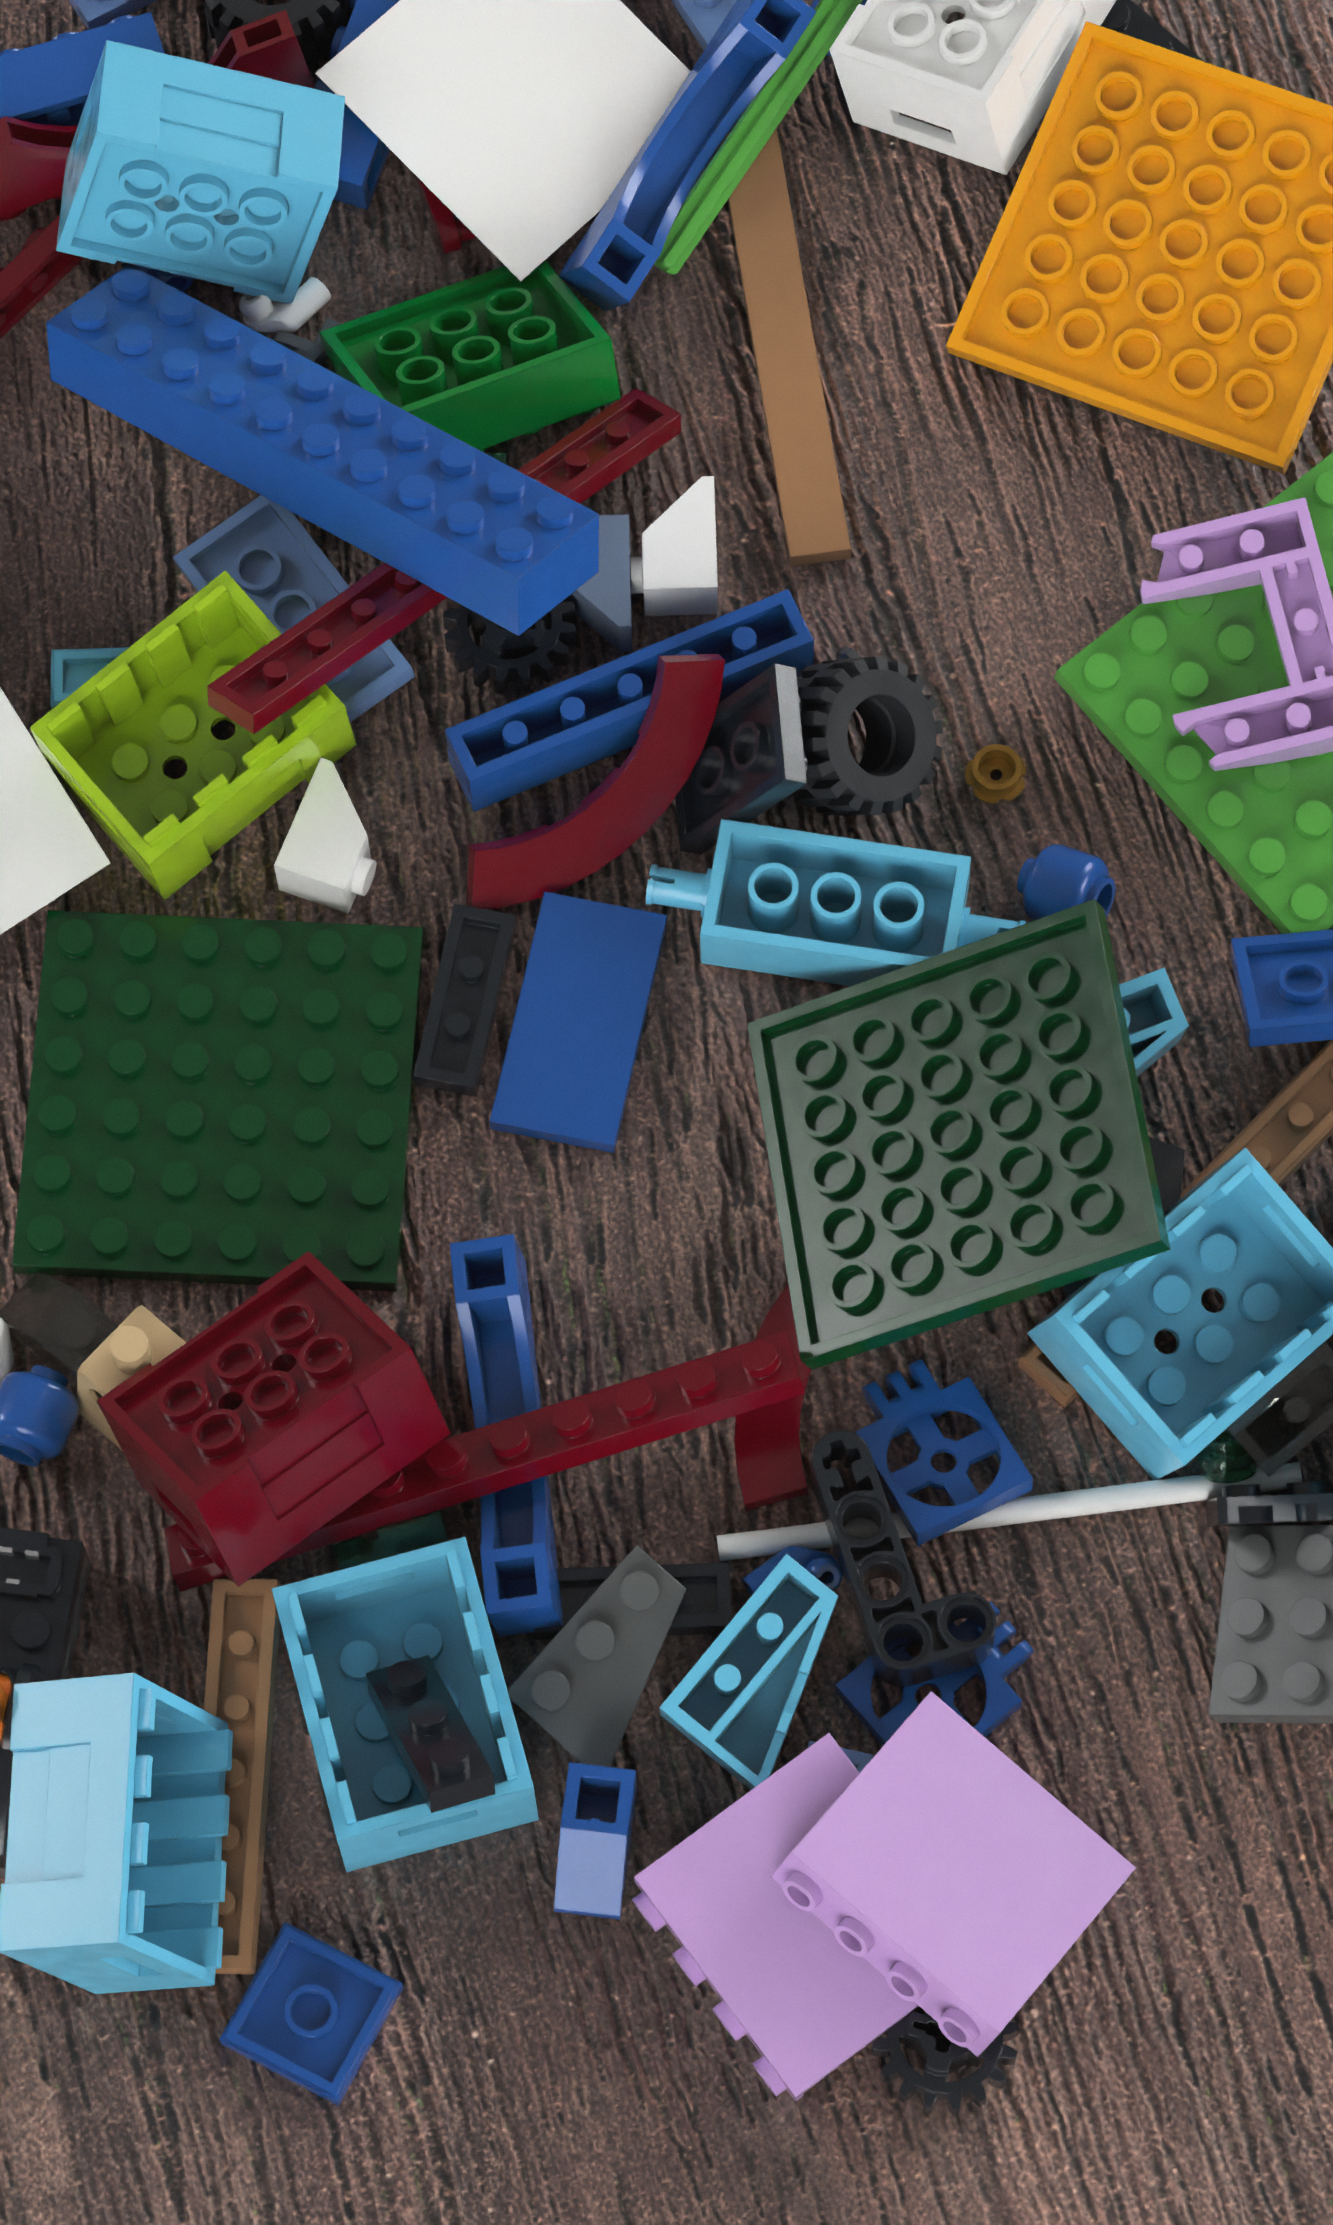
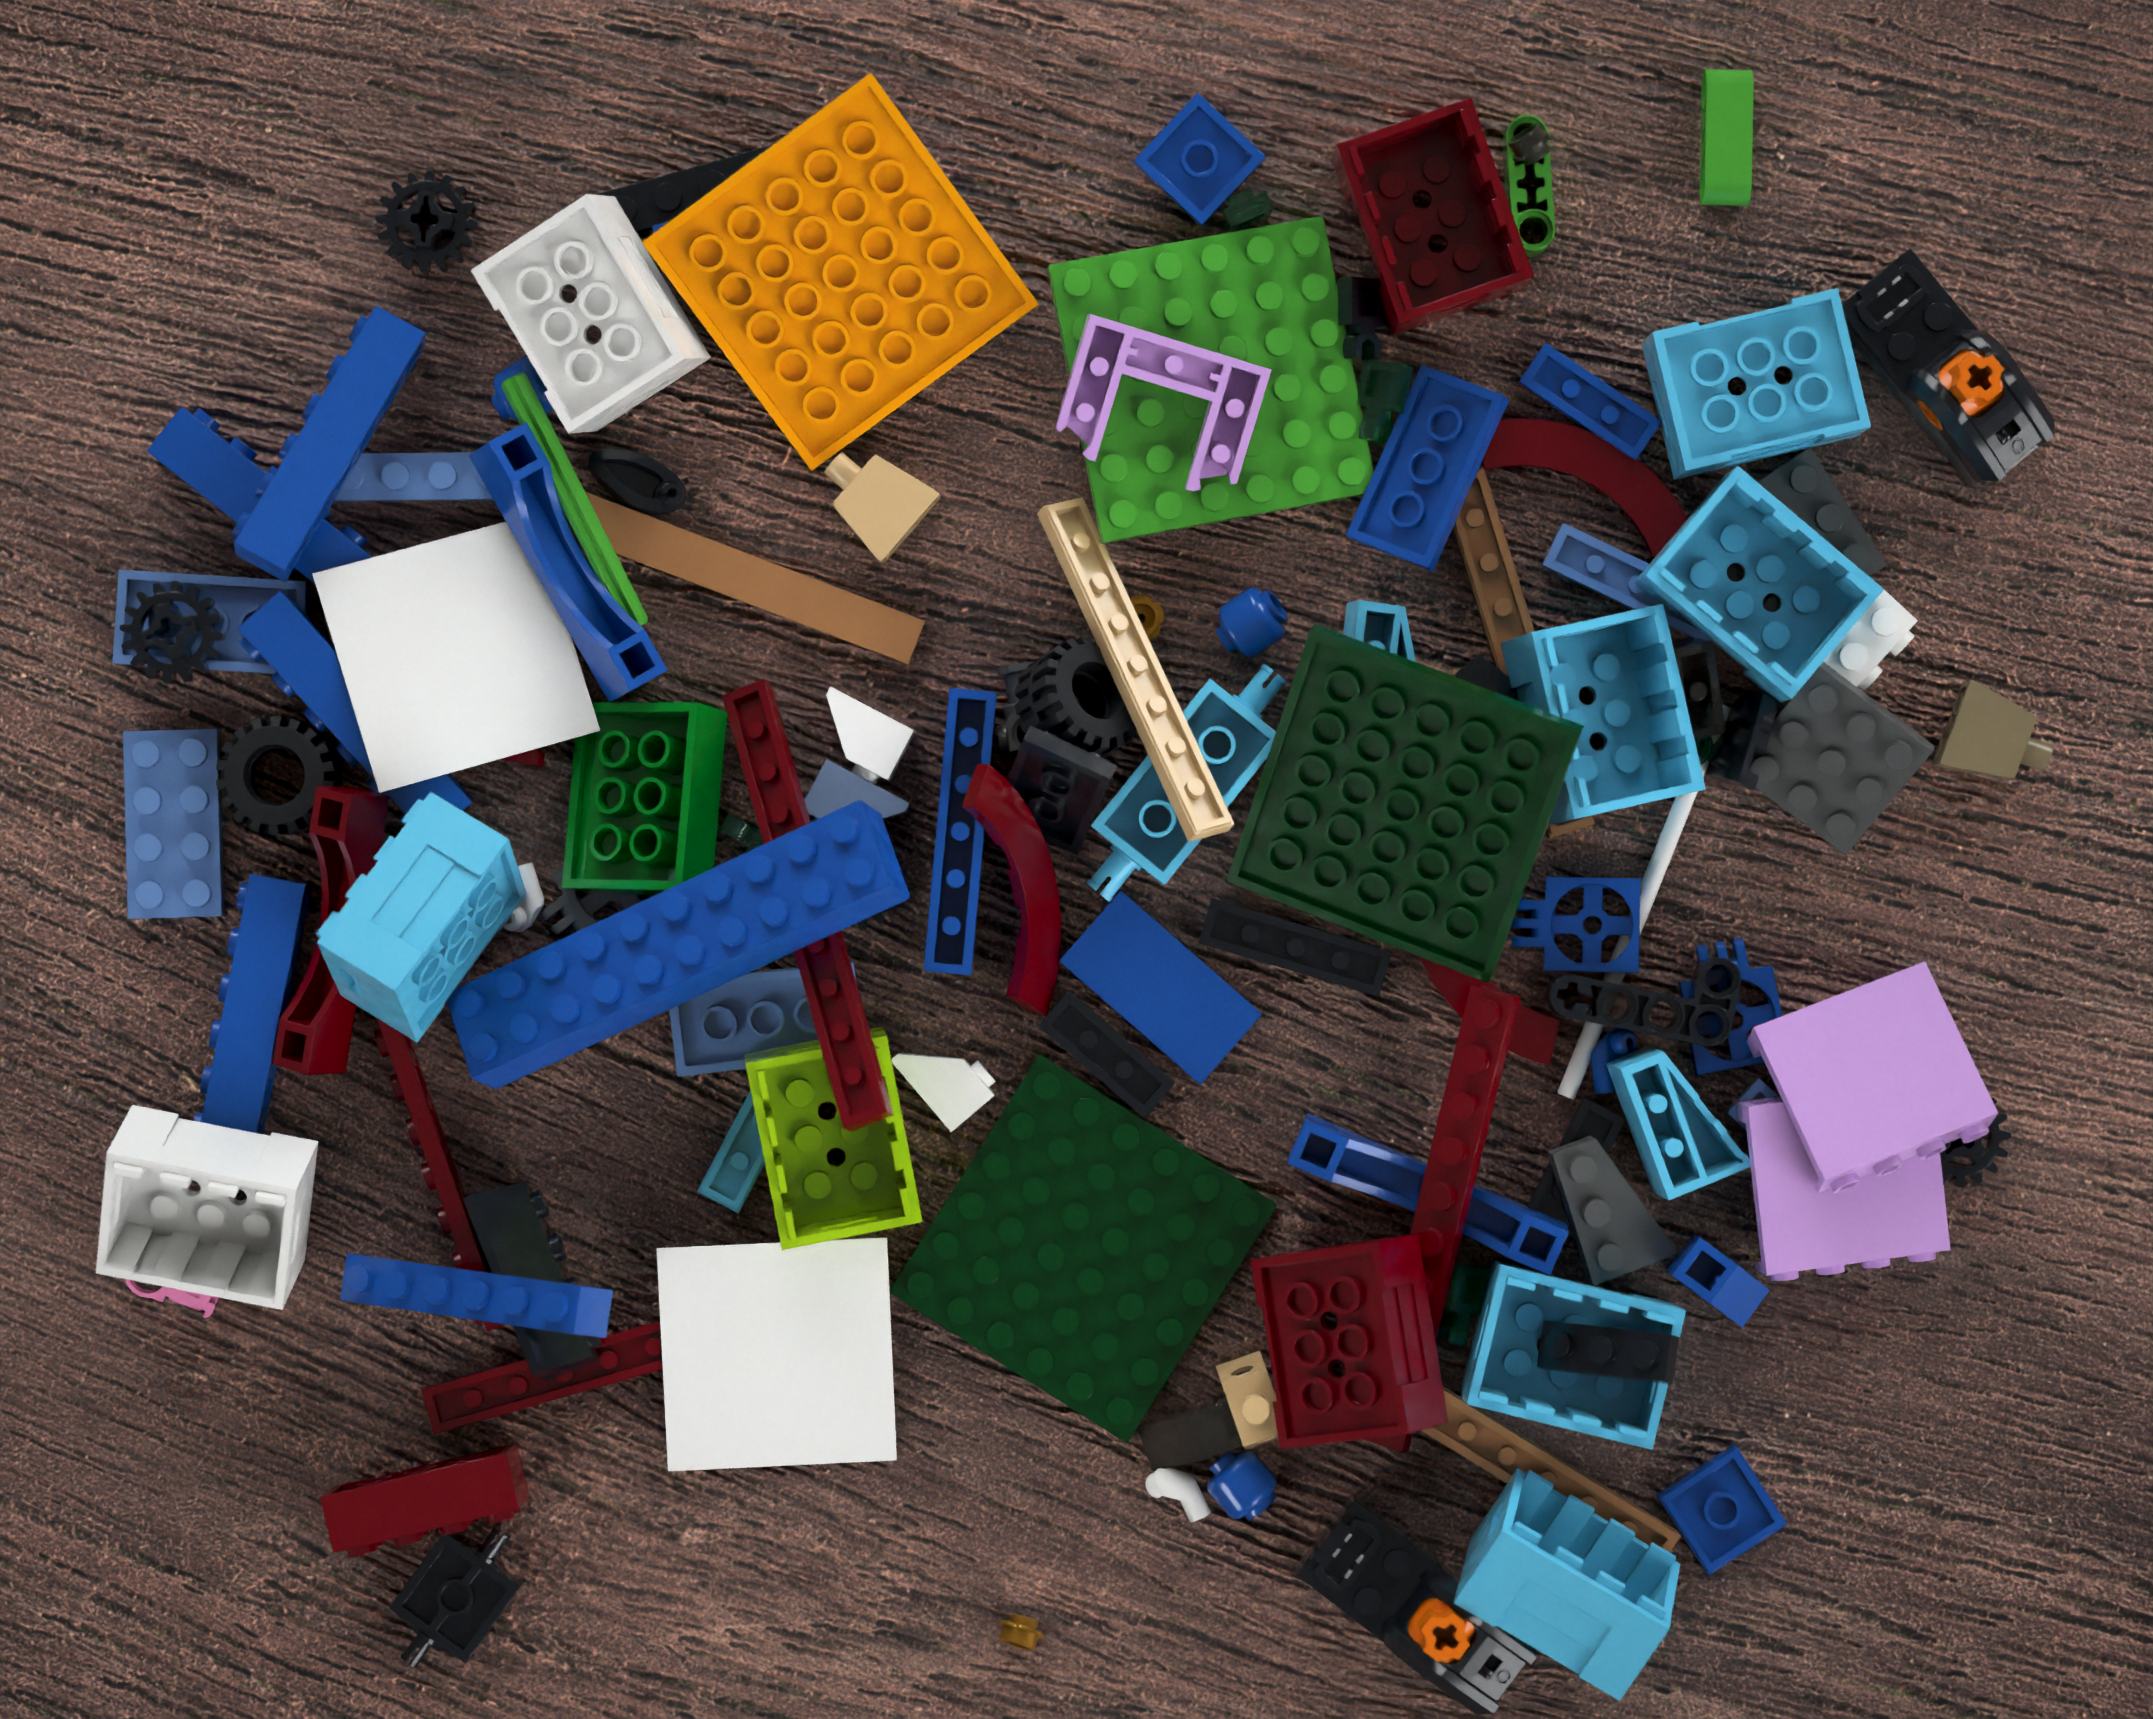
camera: 60 degrees left, 20 degrees up
(715, 1141) = (1295, 947): none -> black plate
(824, 183) = (637, 481): none -> black arm
(927, 775) = (1135, 669): none -> tan tile
(952, 434) = (880, 502): none -> tan torso

